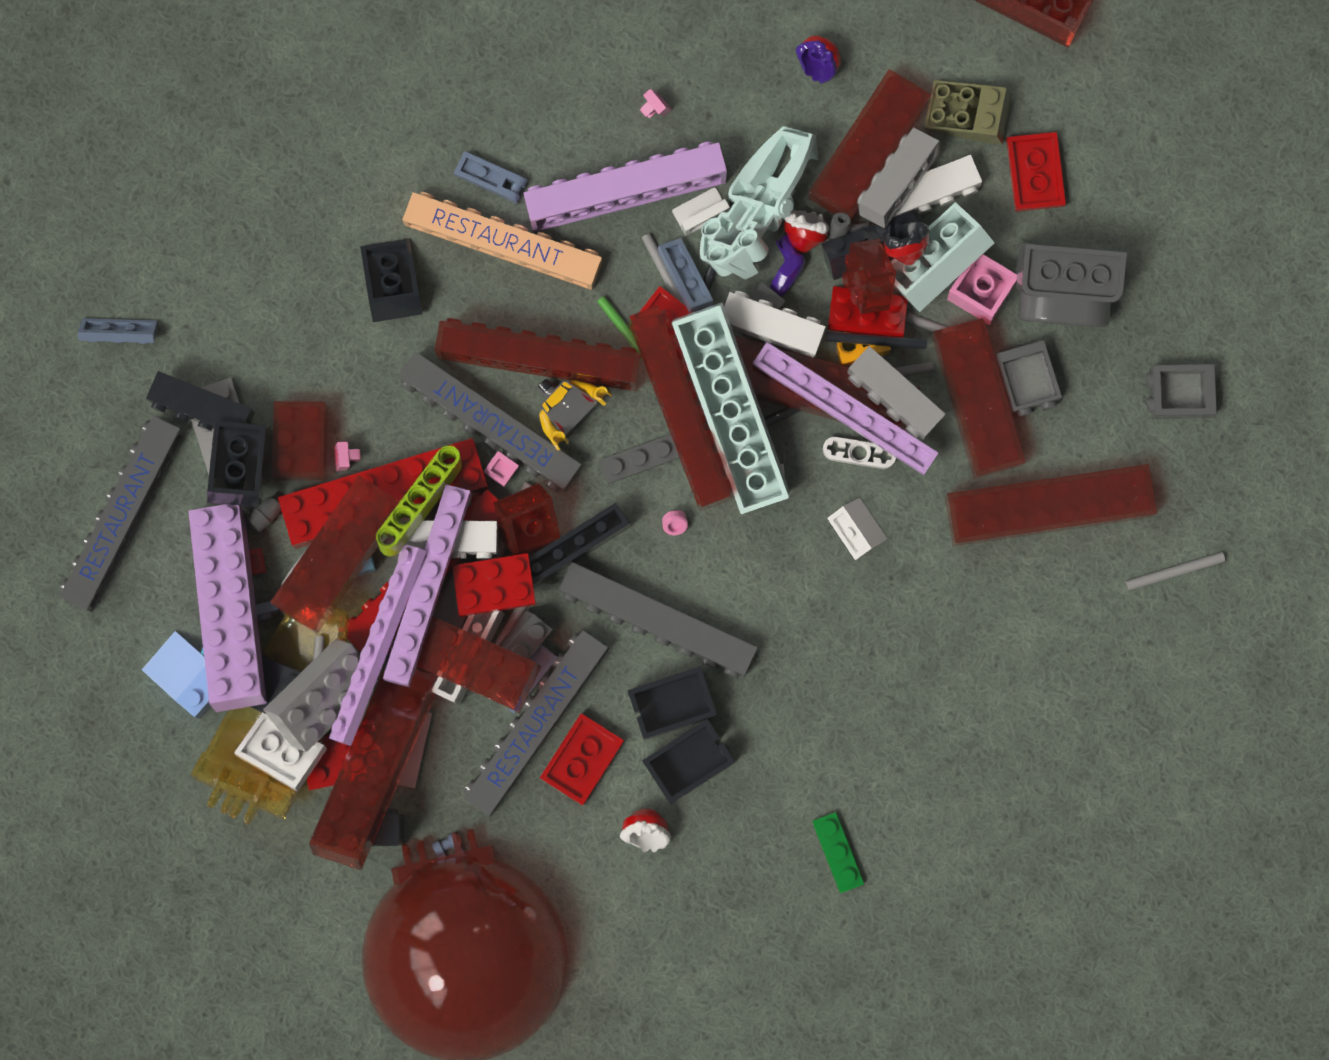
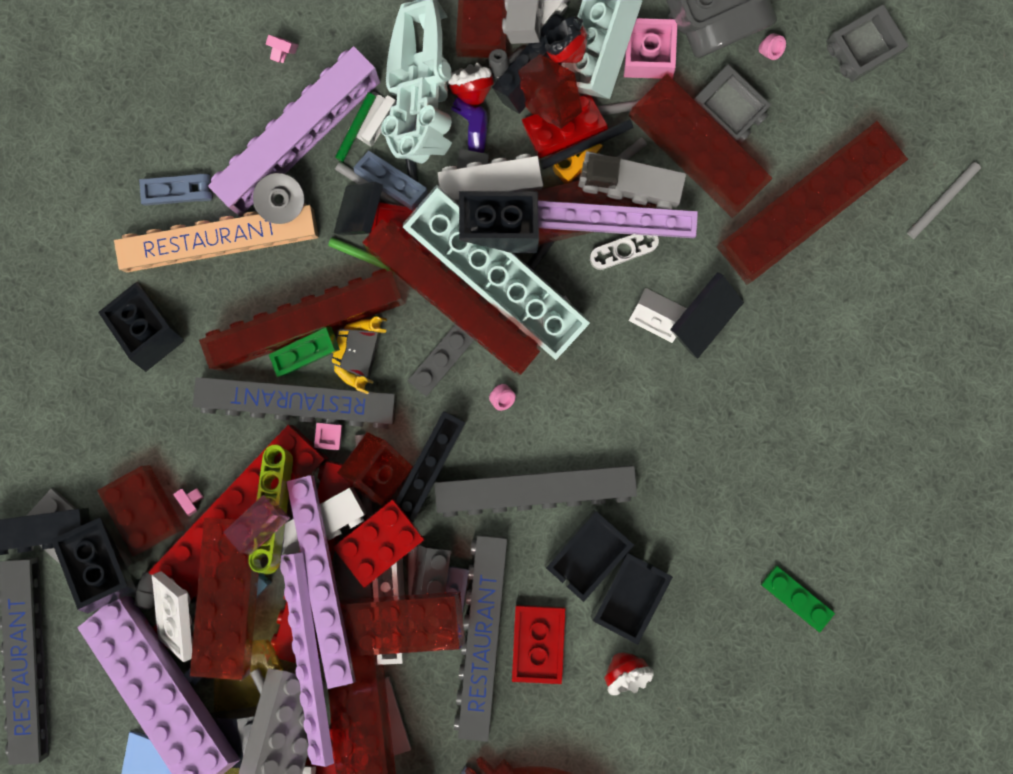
camera: 30 degrees left, 5 degrees up
(279, 546) = (173, 616): none -> white plate
(403, 504) = (256, 525): none -> clear pink brick
(522, 383) = (304, 352): none -> green plate
(573, 250) = (266, 191): none -> light grey dish
(642, 284) = (358, 209): none -> black tile
(681, 210) = (355, 126): none -> green bar
(758, 363) = (500, 220): none -> black slope
(870, 370) = (601, 171): none -> clear smoke brick
(899, 552) = (707, 315): none -> black tile
(1096, 347) = (772, 46): none -> bright pink tile

